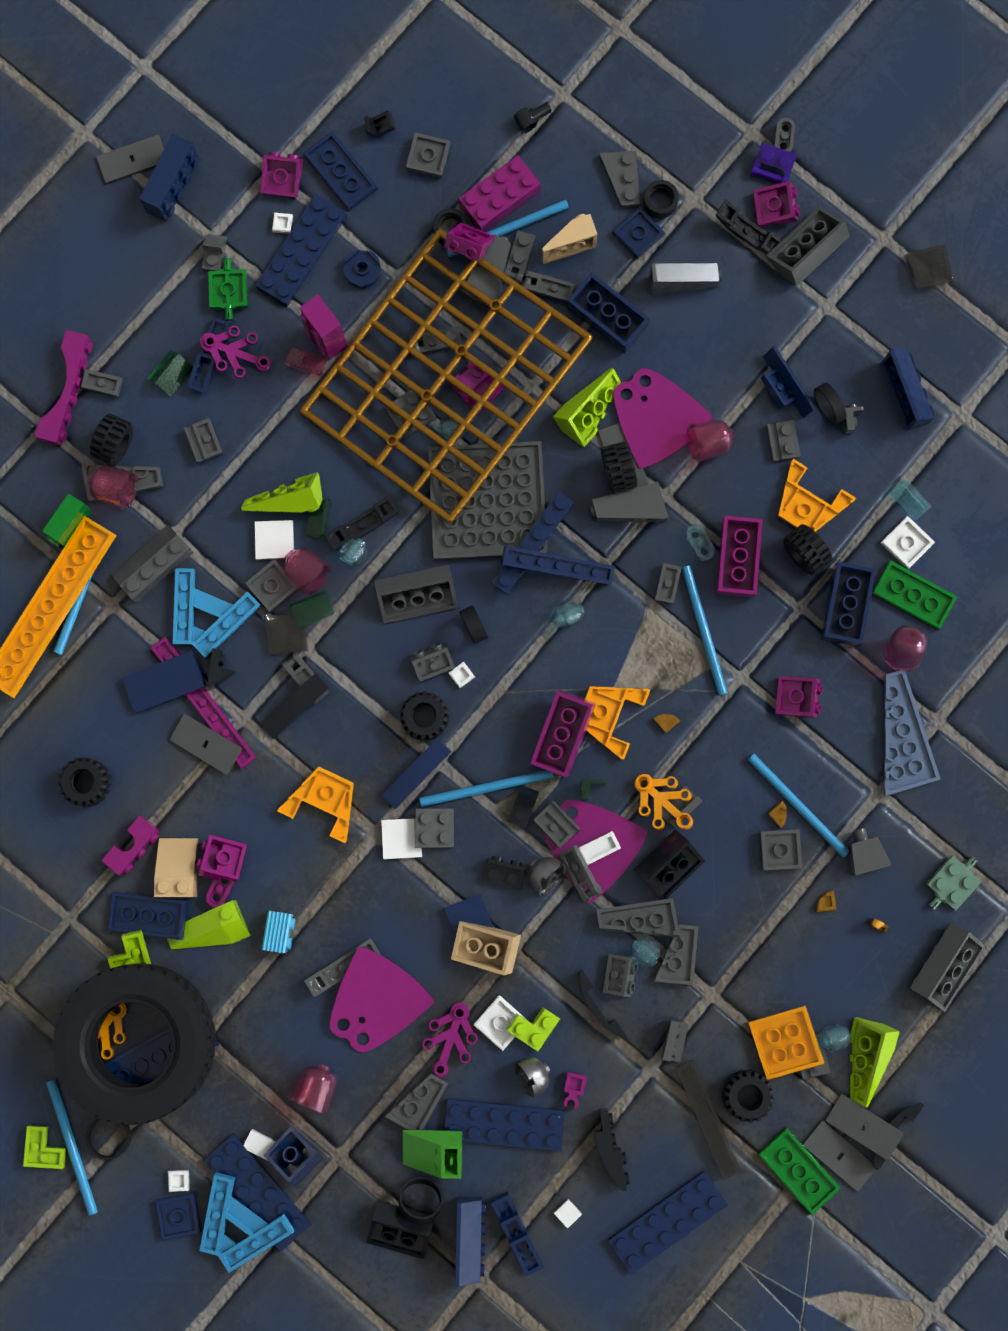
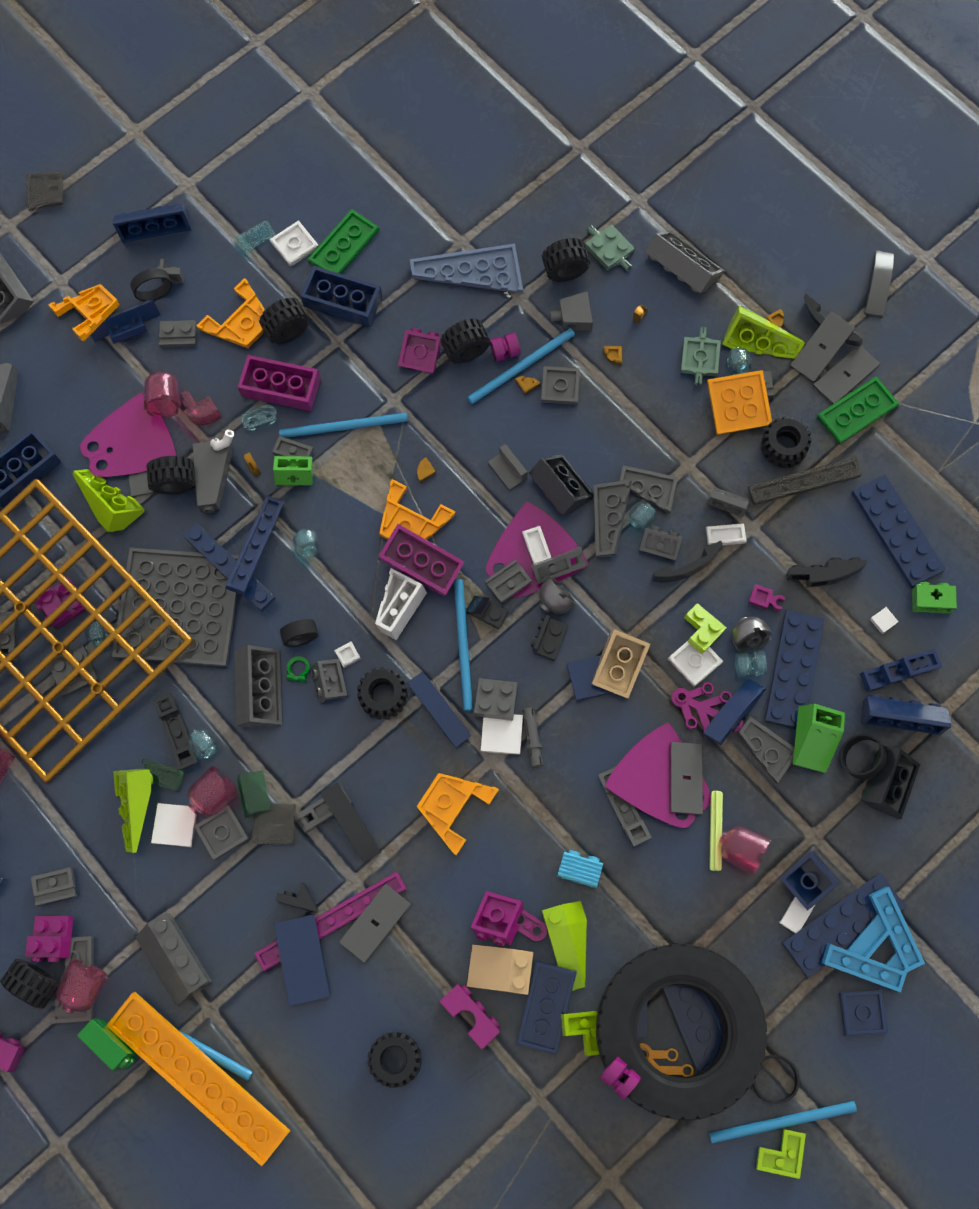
camera: 80 degrees left, 10 degrees down
(83, 985) = (614, 1071): none -> magenta wheel
(155, 448) = (50, 938): none -> magenta plate
(178, 1180) = (826, 1007): white tile -> none
(229, 615) = (247, 881): dark azure plate -> none
(332, 1059) = (715, 862): none -> yellowish green axle
(363, 1026) = (686, 795): none -> dark grey piece
(400, 869) = (534, 745): none -> dark grey pin
(431, 634) = (302, 677): none -> green piece
(450, 1067) = (734, 711): none -> dark blue slope
(502, 1079) = (745, 668): none -> clear light blue wheel
(517, 717) = (399, 603): none -> white wedge
(585, 787) = (477, 546): clear green panel -> none
(597, 1276) = (924, 602): none -> bright green brick
(638, 1041) = (727, 534): none -> white tile
(644, 588) = (293, 470): none -> bright green brick
(650, 542) = (251, 464): none -> pearl gold tile
(661, 514) = (223, 443): none -> white arm
(661, 799) = (498, 480): light orange plant -> none
(696, 483) = (202, 412): none -> clear pink brick
(800, 349) = (93, 304): none -> light orange wing
(812, 743) = (465, 341): none -> black tyre
(815, 785) = (505, 347): none -> magenta wheel
(836, 995) = (700, 356): none -> sand green plate
(893, 1073) = (776, 318): none -> pearl gold tile
(906, 648) = (390, 252): clear pink cylinder -> none
(924, 837) = (565, 259): none -> black tyre
(954, 1186) = (880, 284): none -> dark grey slope

